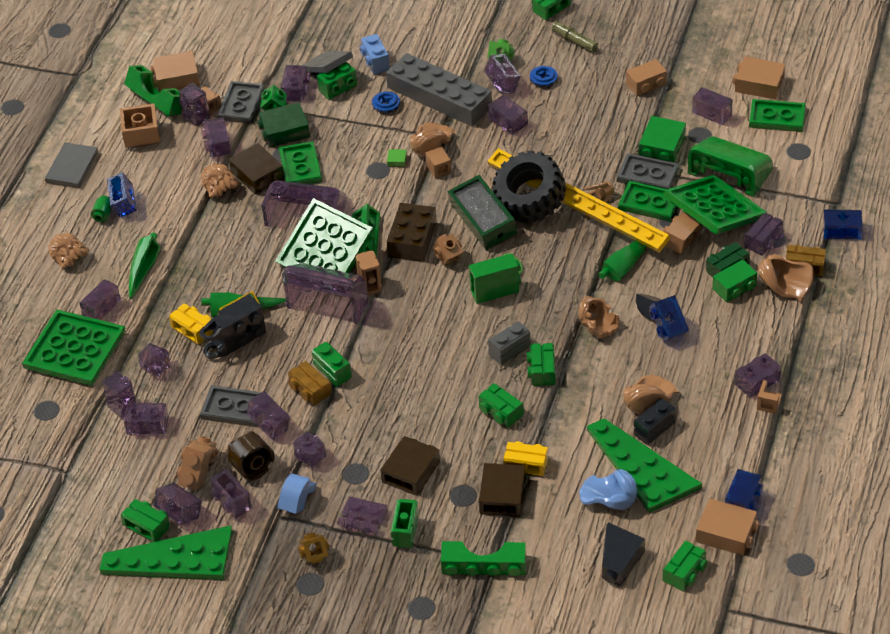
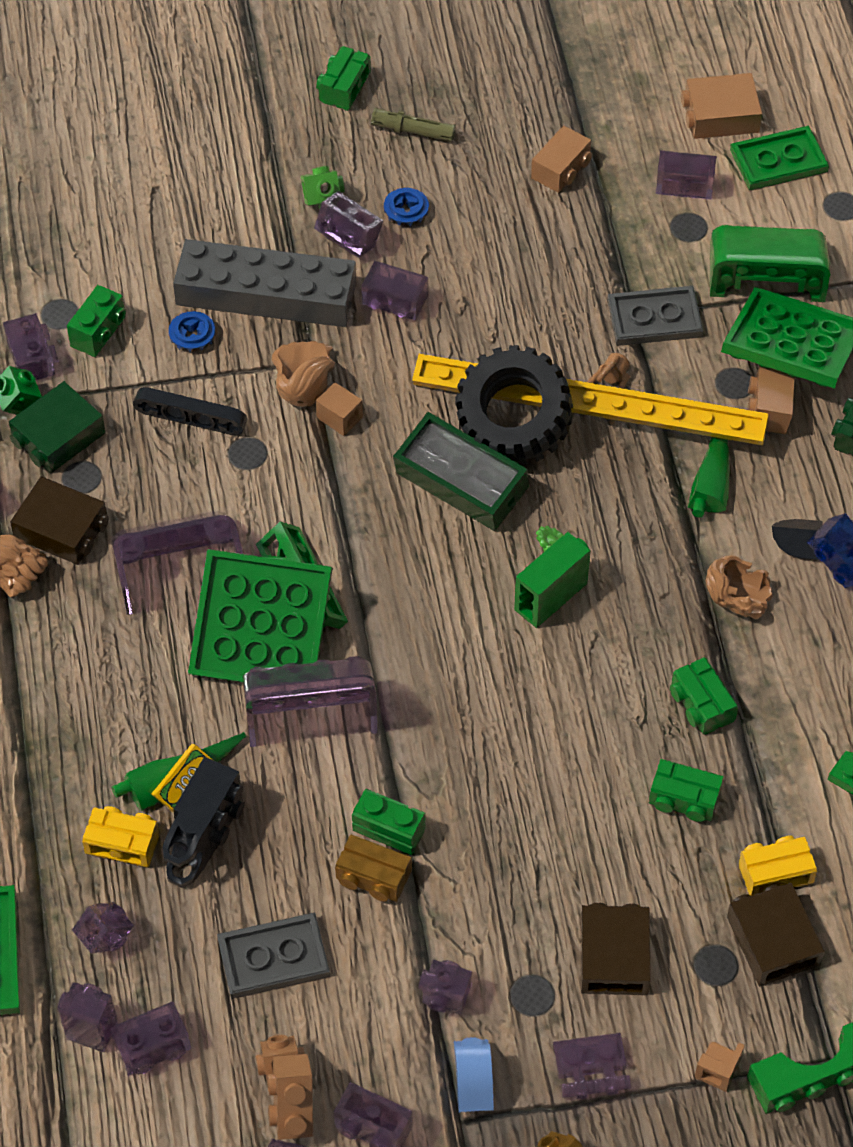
camera: 30 degrees left, 10 degrees up
(250, 455) = (365, 1038): dark brown brick -> none
(268, 415) = (349, 954): clear purple brick -> none
(300, 163) = (122, 484): green tile -> none
(327, 61) = (65, 294): dark grey tile -> none
(358, 139) = (190, 411): none -> black beam
(369, 269) = (355, 636): medium nougat brick -> none
(374, 54) = (129, 255): medium blue brick -> none
(396, 157) = (266, 422): bright green tile -> none
(404, 523) = (672, 1056): green brick -> none
(411, 232) = (373, 544): dark brown brick -> none
(429, 541) = (719, 1065): none -> medium nougat panel
(448, 249) = (448, 553): medium nougat brick -> none
(509, 342) = (634, 679): dark grey brick -> none
(646, 201) = (685, 362): green tile -> none
(662, 139) = (647, 254): green brick -> none

